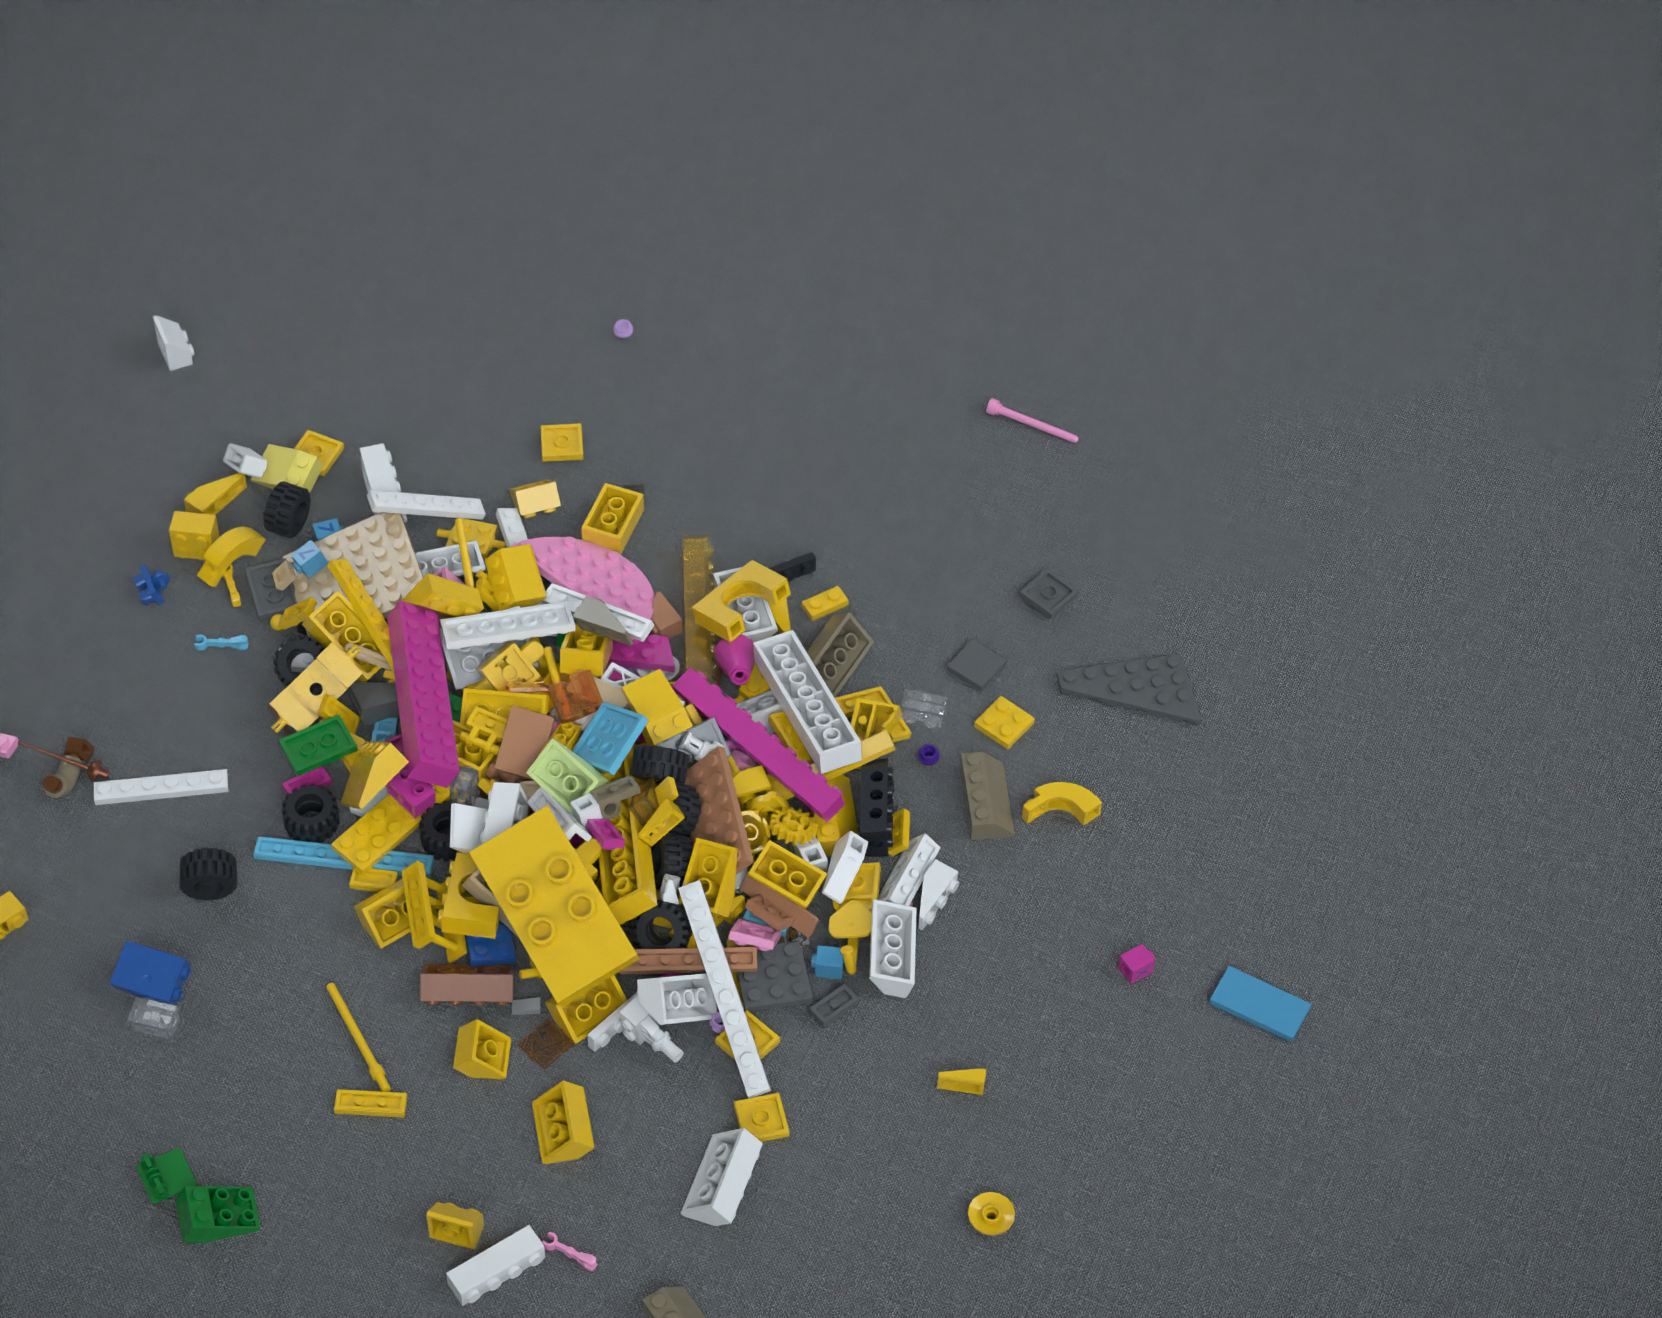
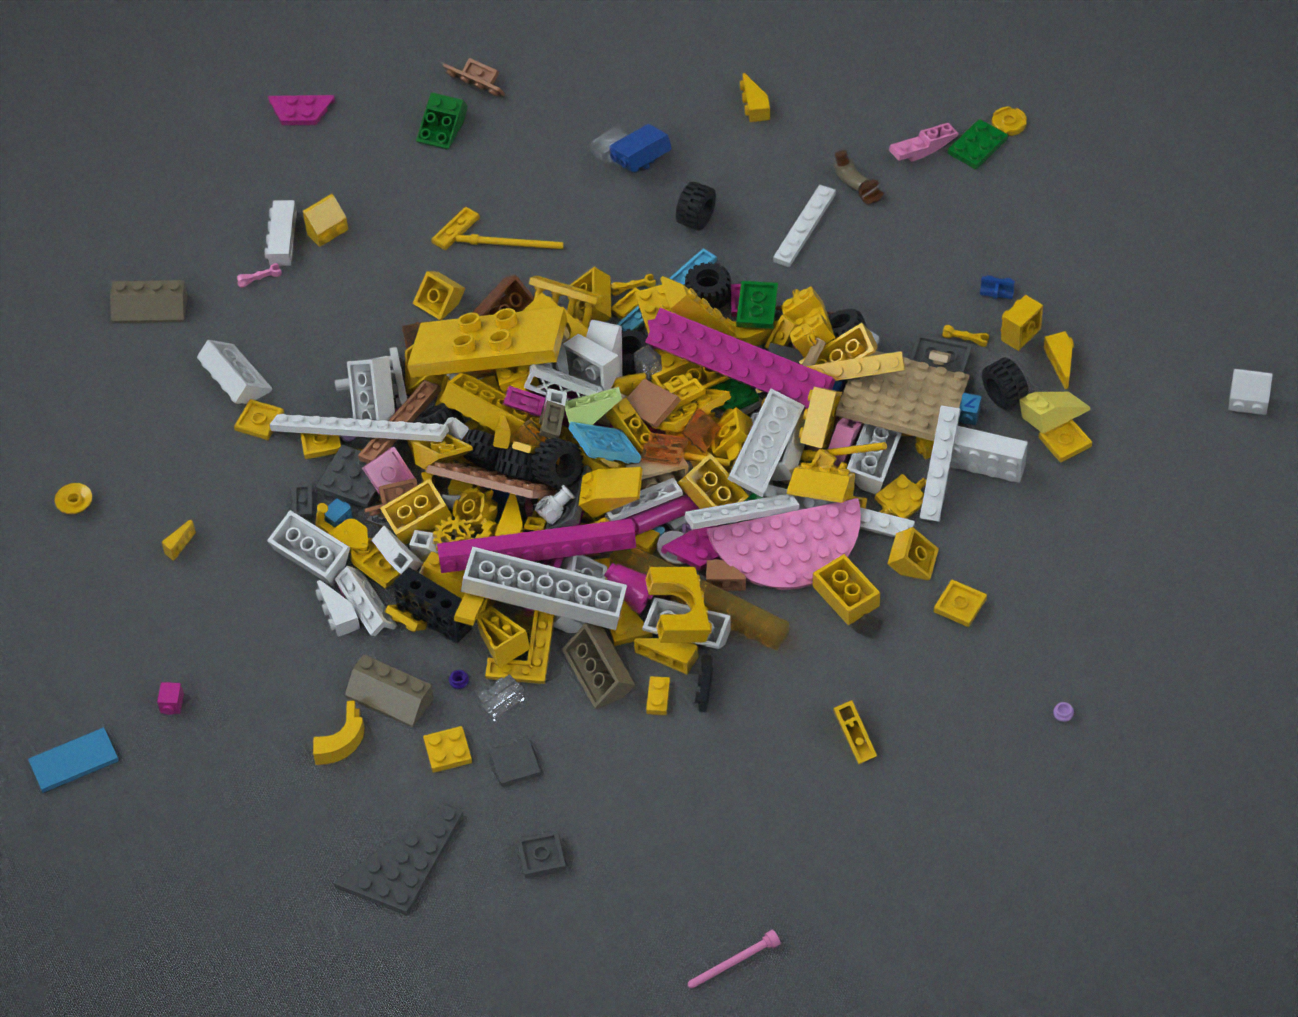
camera: 130 degrees right, 0 degrees up
(93, 769) = (844, 192): copper sword -> none
(117, 1221) = (477, 73): none -> nougat bracket
(165, 1175) = (492, 111): green hinge -> none
(226, 549) = (992, 338): yellow arch -> none
(238, 642) = (904, 315): medium azure piece -> none
(245, 460) = (1079, 382): white brick -> none
(293, 615) = (892, 345): yellow plate -> none
(308, 559) = (938, 370): dark azure brick -> none
(356, 896) = (619, 287): none -> yellow piece
(563, 1123) = (346, 311): yellow slope -> none
(597, 618) = (717, 496): slope -> none
(753, 448) = (854, 732): none -> yellow slope

